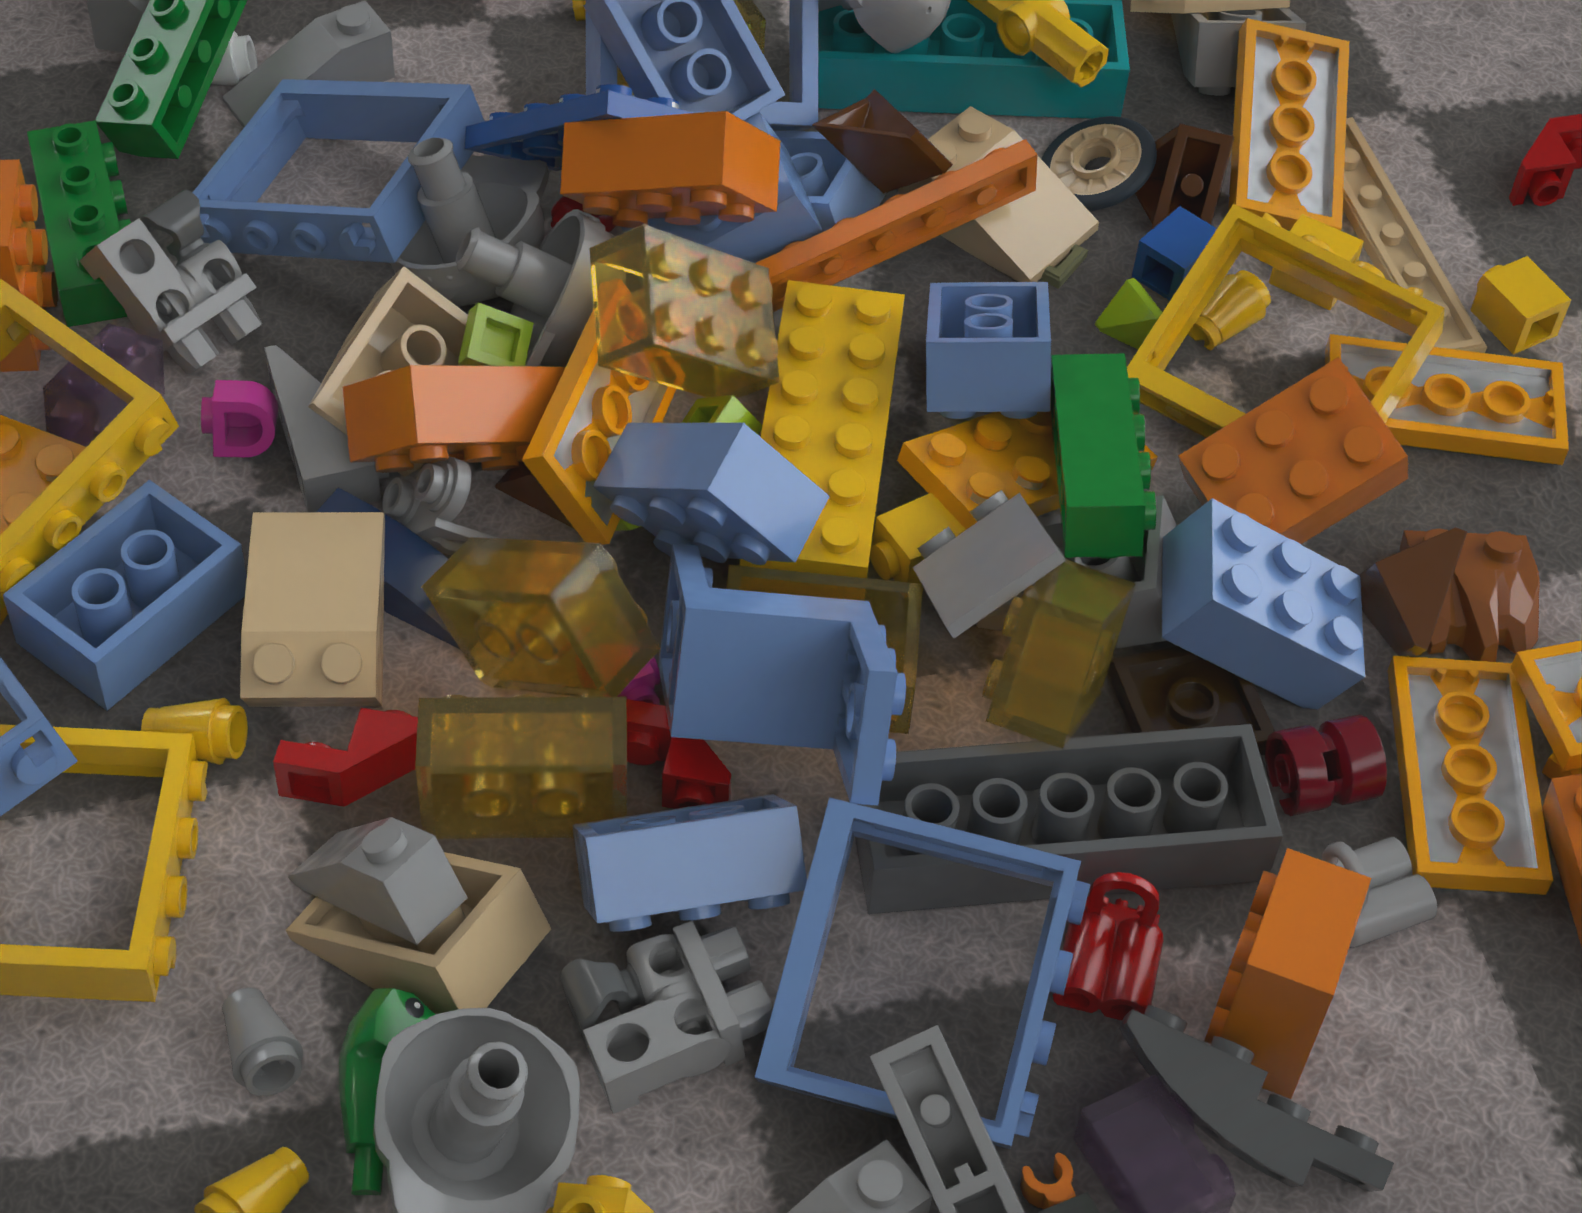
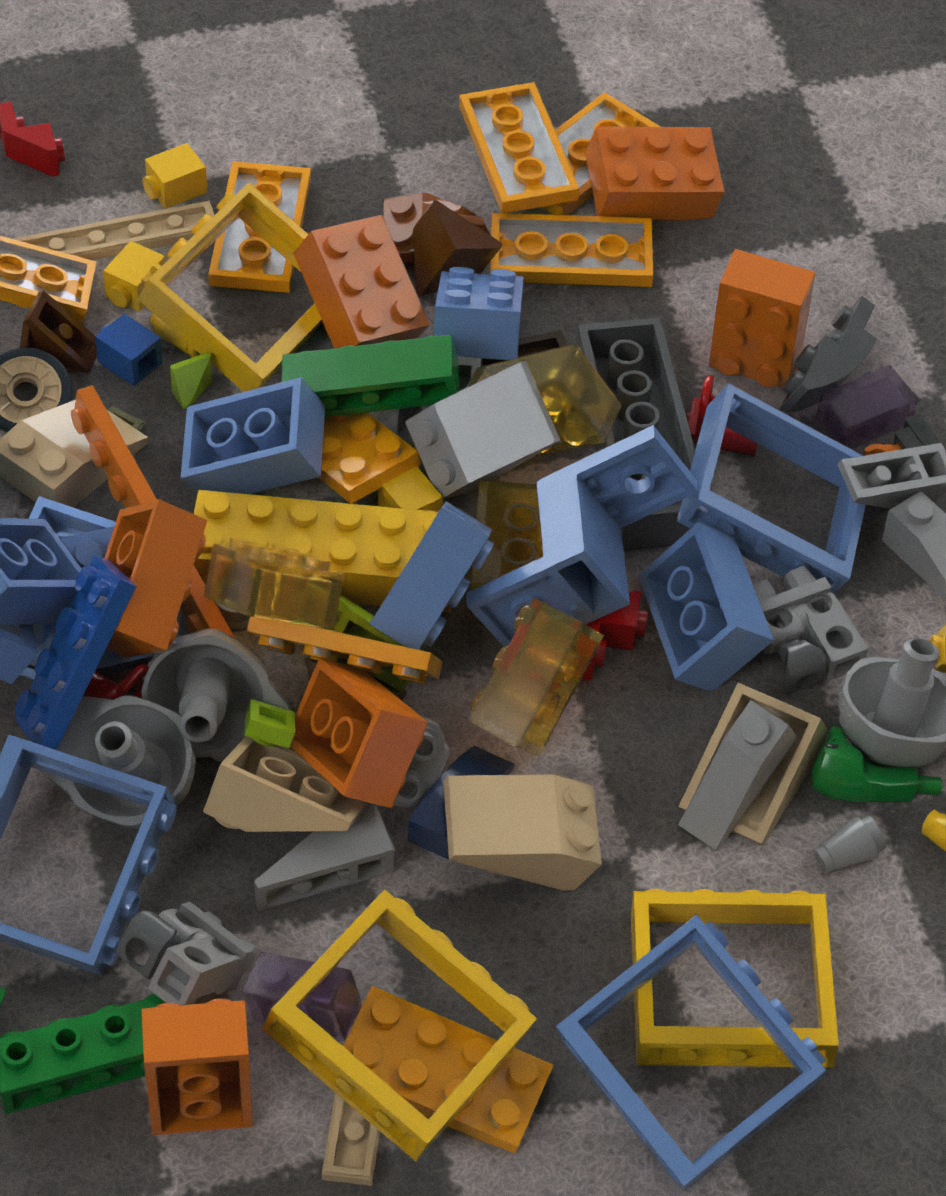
camera: 90 degrees left, 0 degrees up
(127, 594) = (516, 944): medium blue brick -> none
(216, 726) = (609, 907): yellow cone -> none
(240, 418) = (316, 911): dark pink plate -> none
(377, 754) = (626, 801): red slope -> none
(520, 764) = (641, 699): clear yellow brick -> none
(882, 144) = (60, 479): reddish brown slope -> none
(1334, 763) = (577, 301): dark red wheel -> none
(1394, 895) = (666, 298): light grey piece -> none

